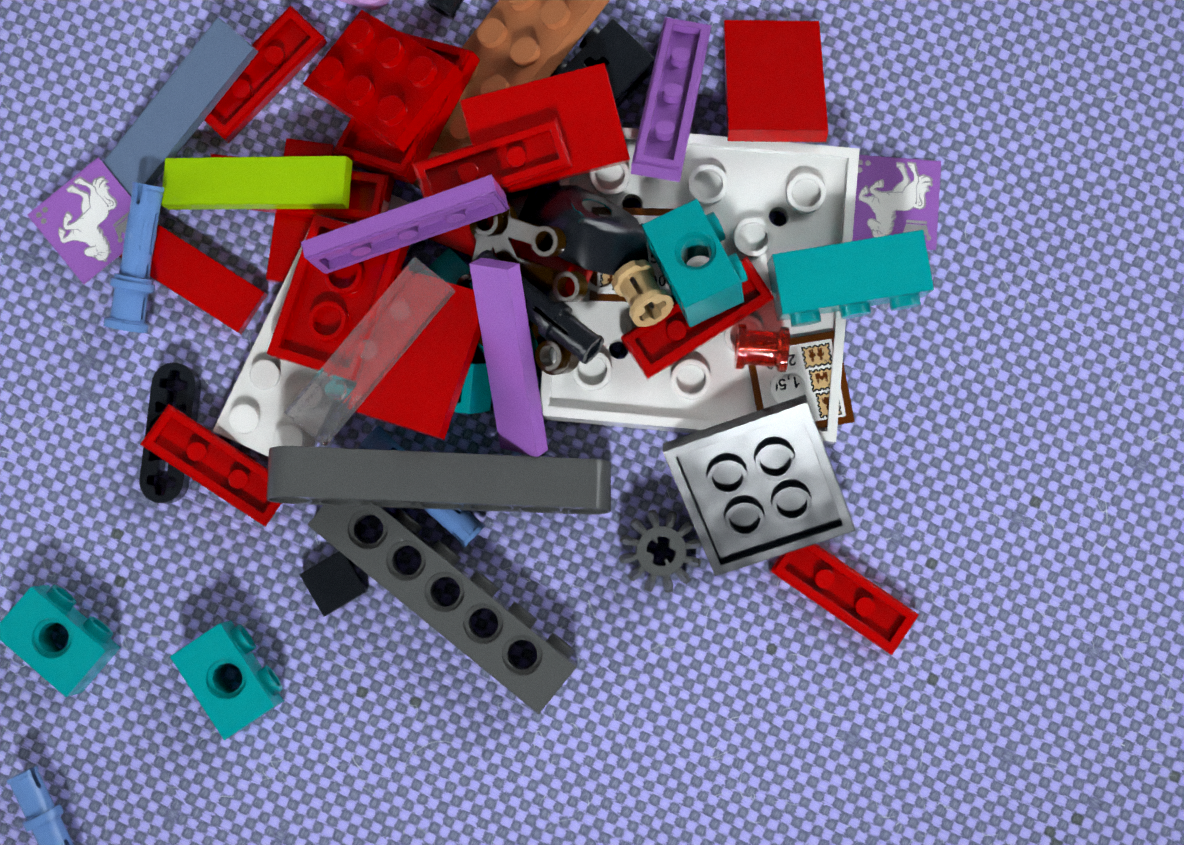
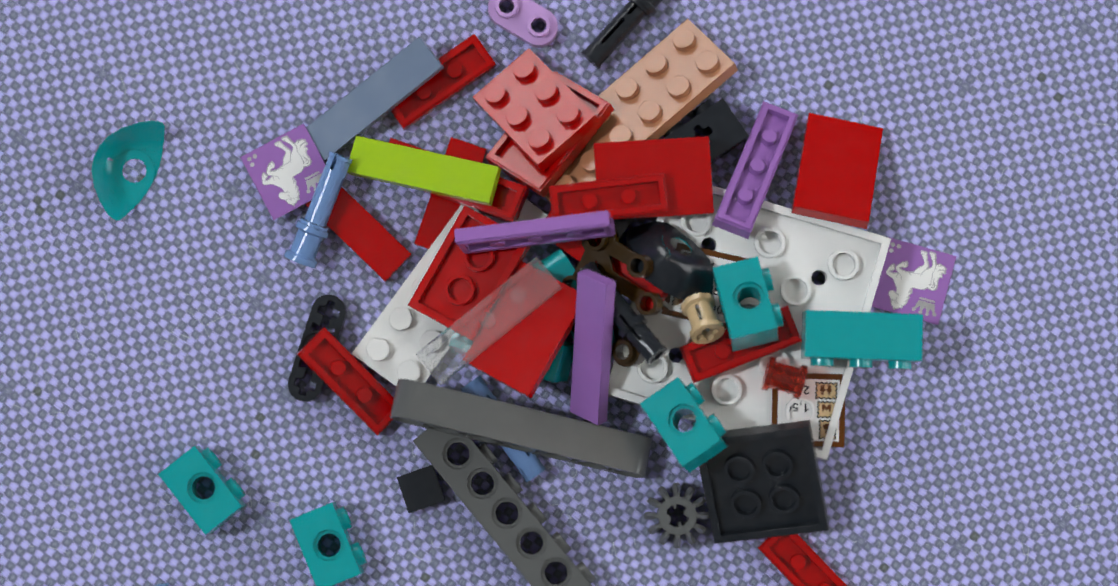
camera: 10 degrees right, 0 degrees up
(623, 412) = (665, 411): none -> teal brick

